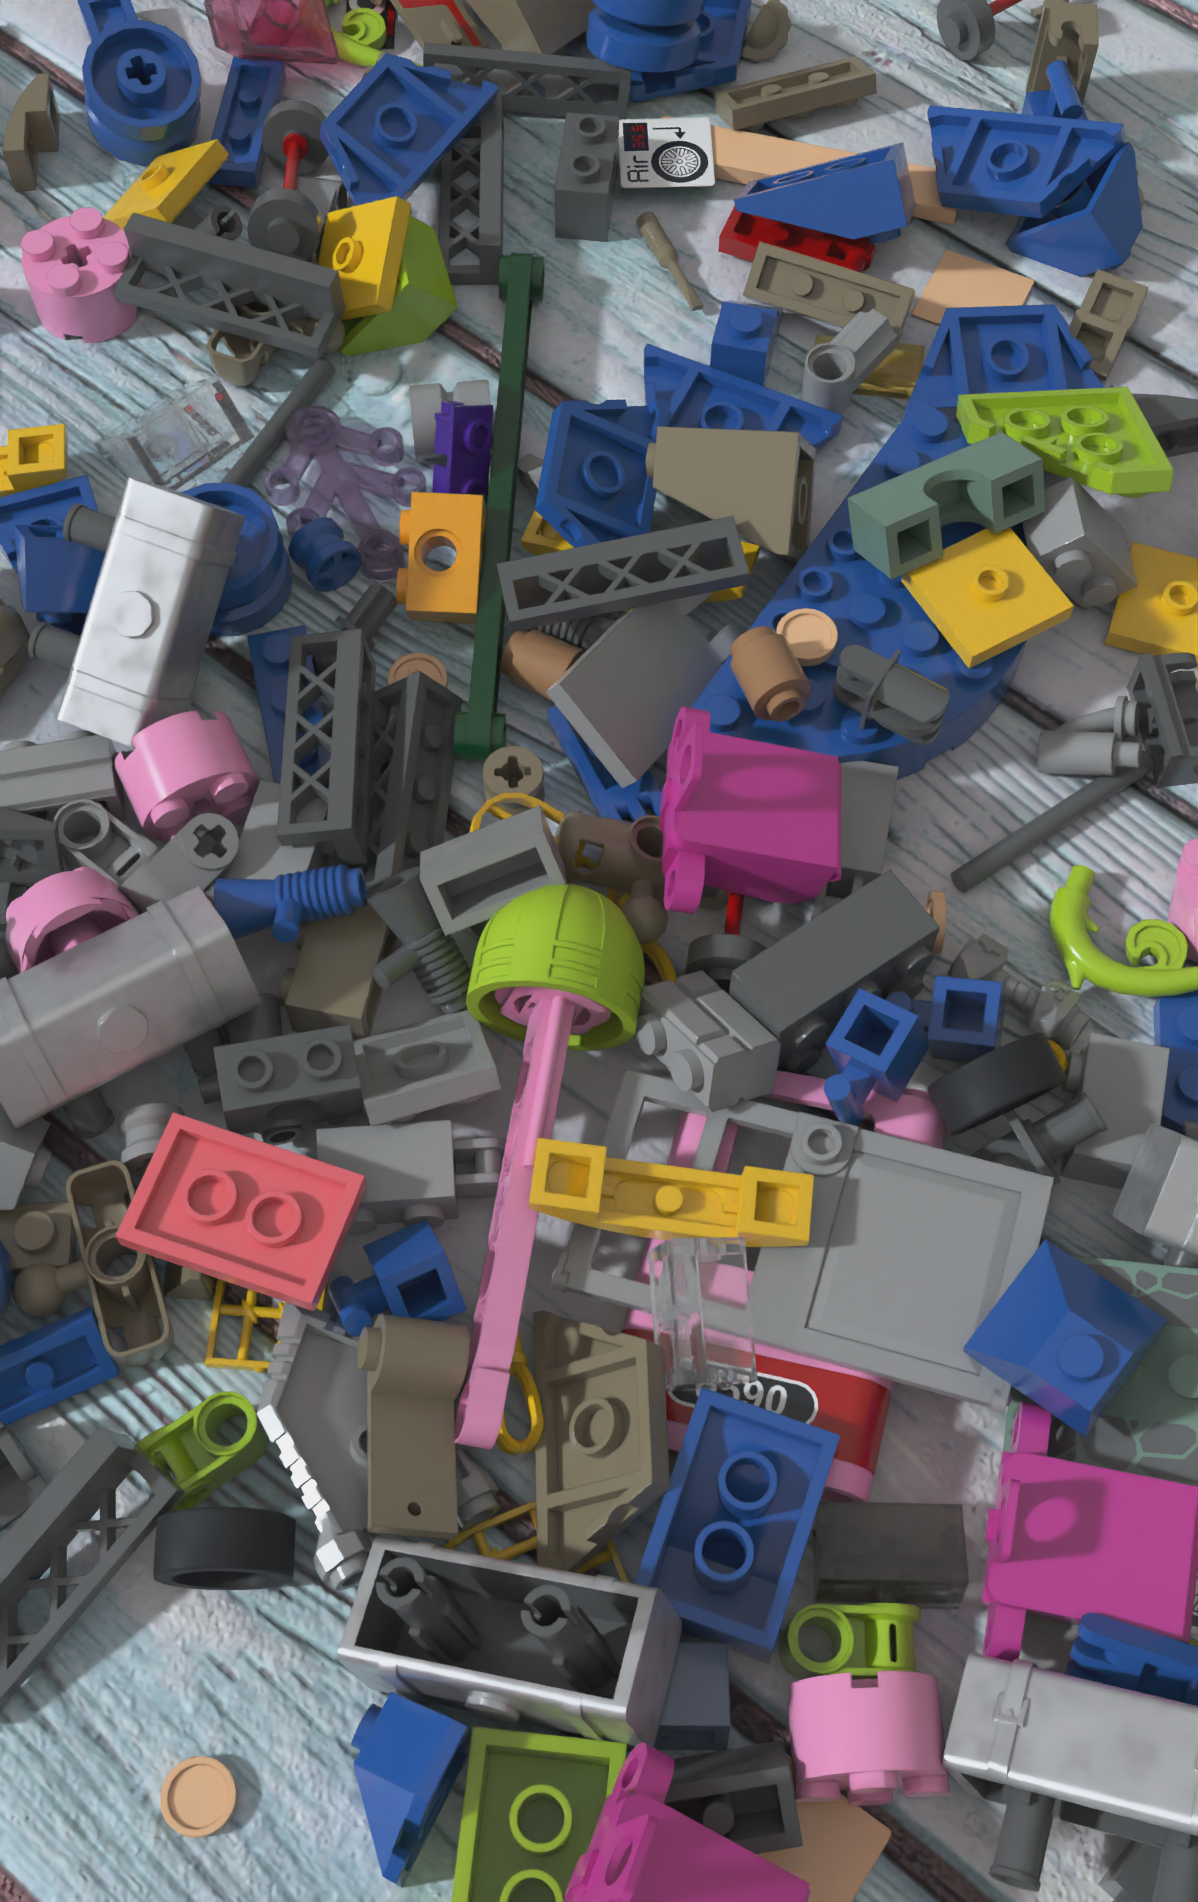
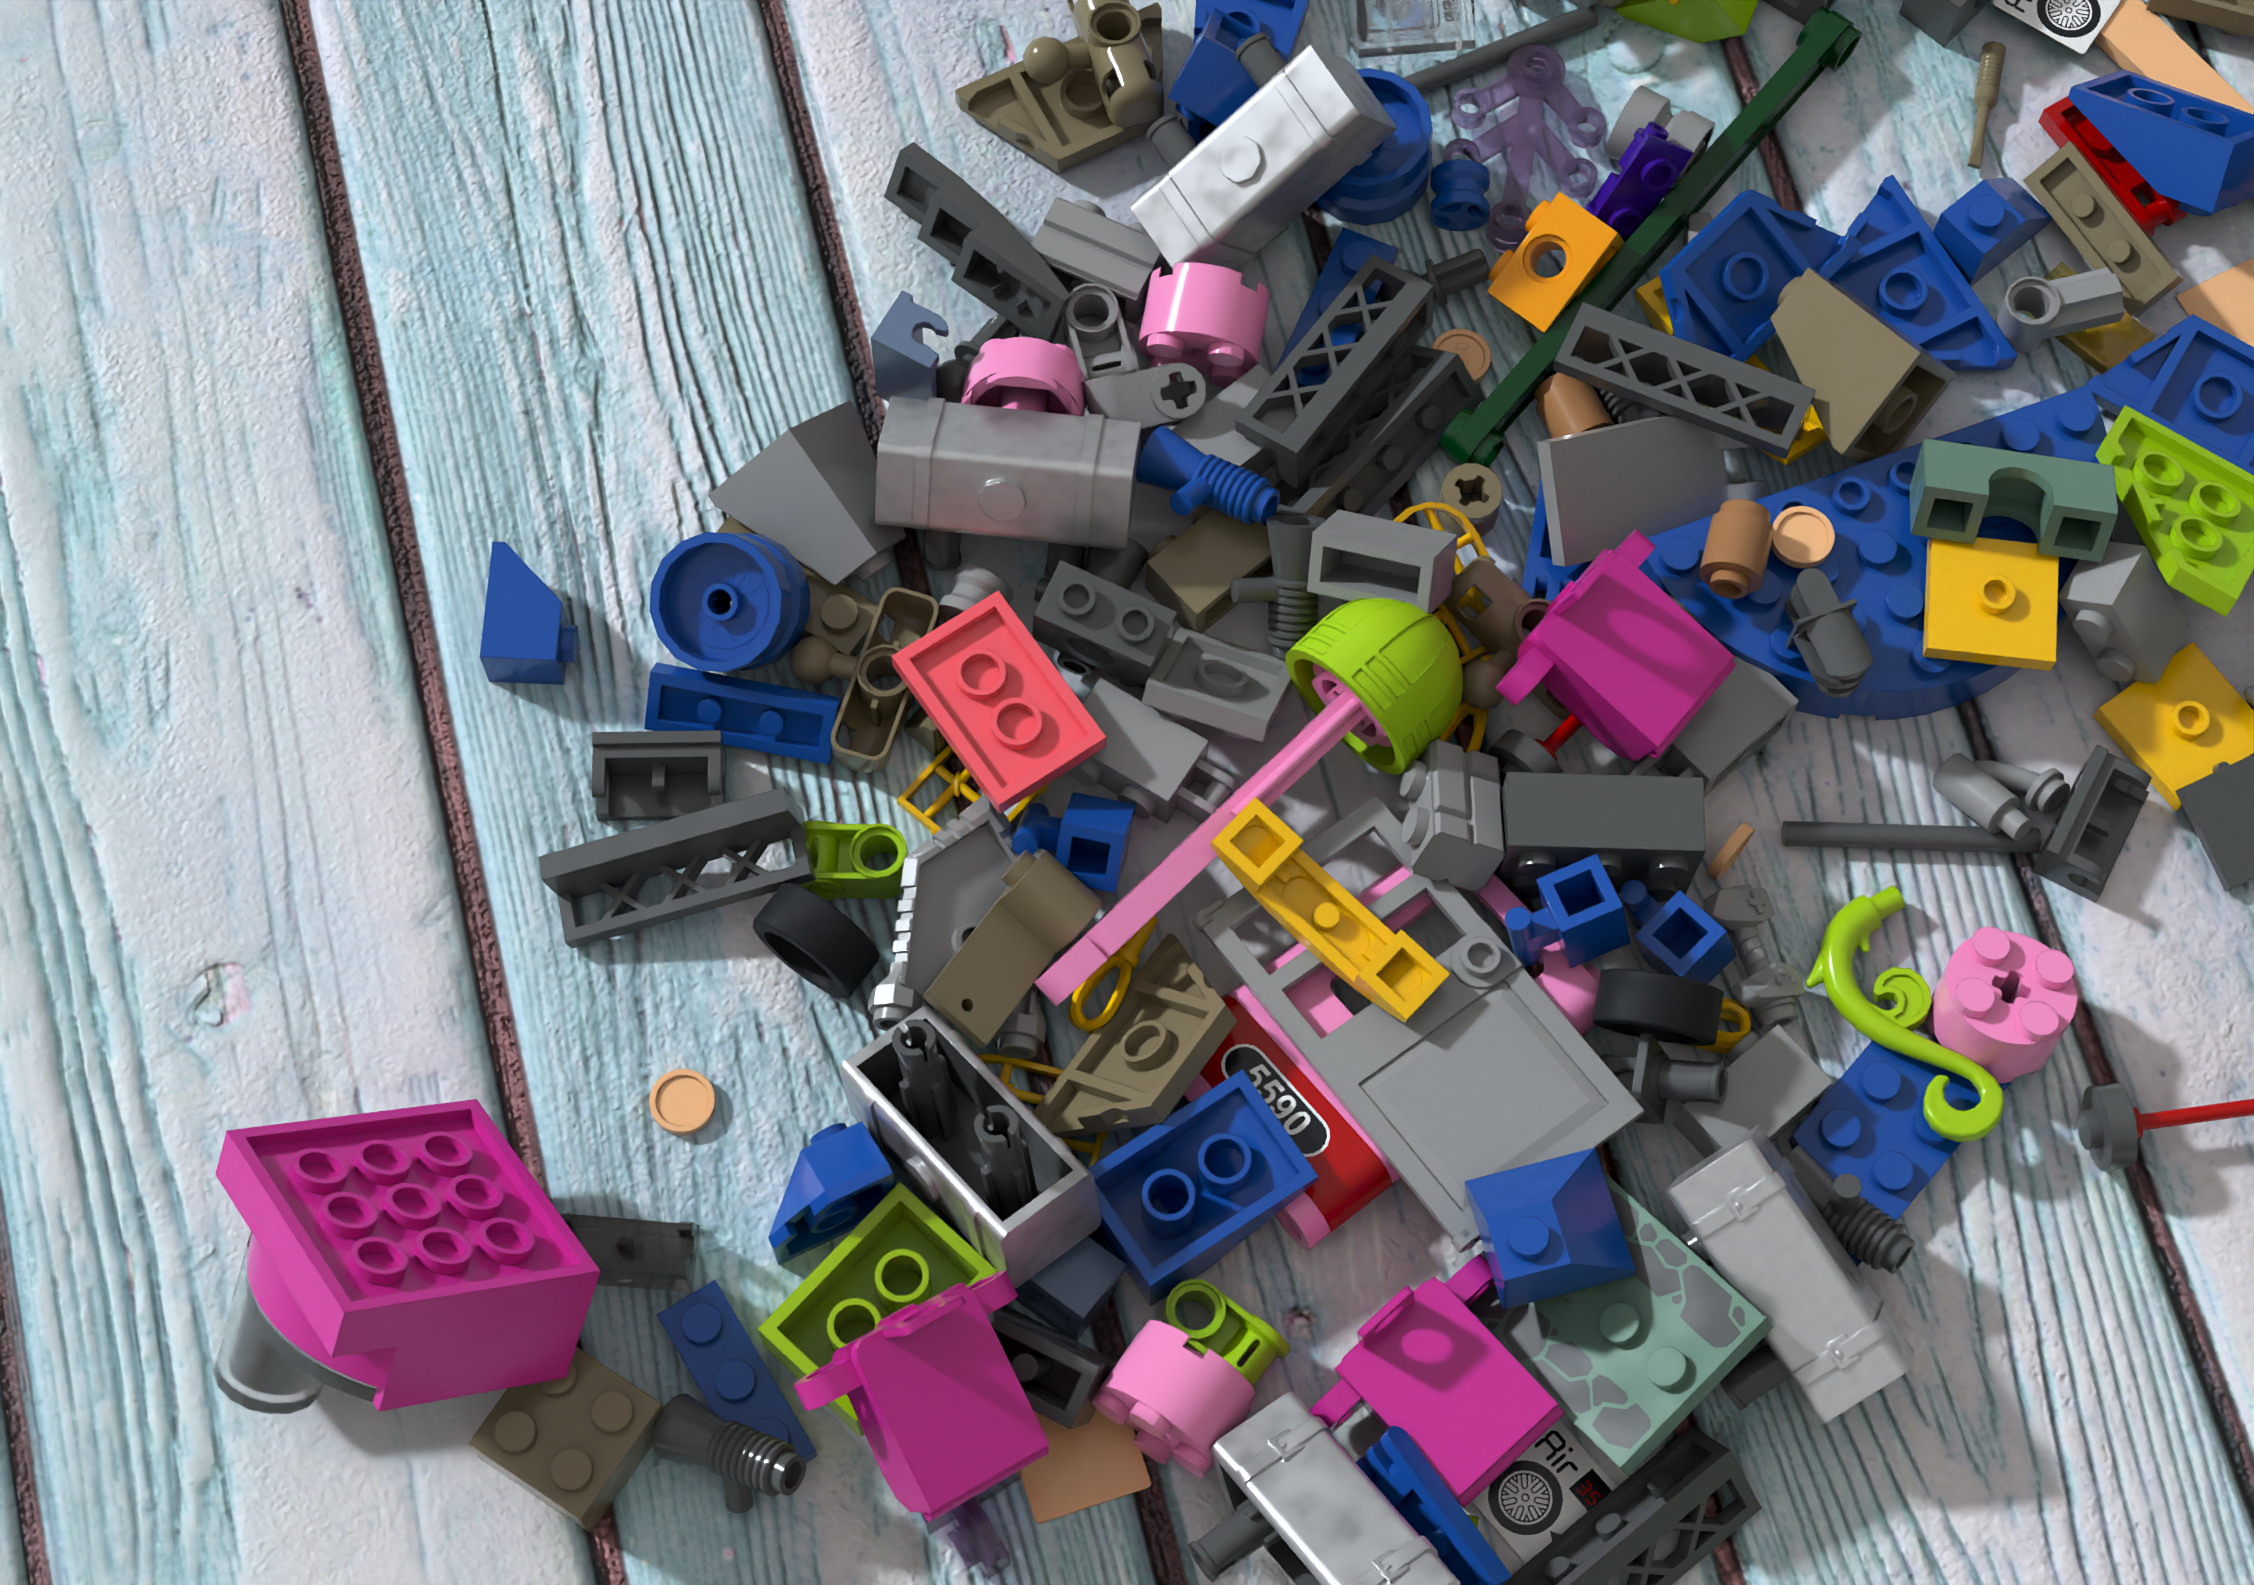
camera: 35 degrees right, 5 degrees up
(702, 1312) = (1285, 1017): clear hinge -> none
(889, 1554) = (1298, 1294): clear smoke hinge -> none

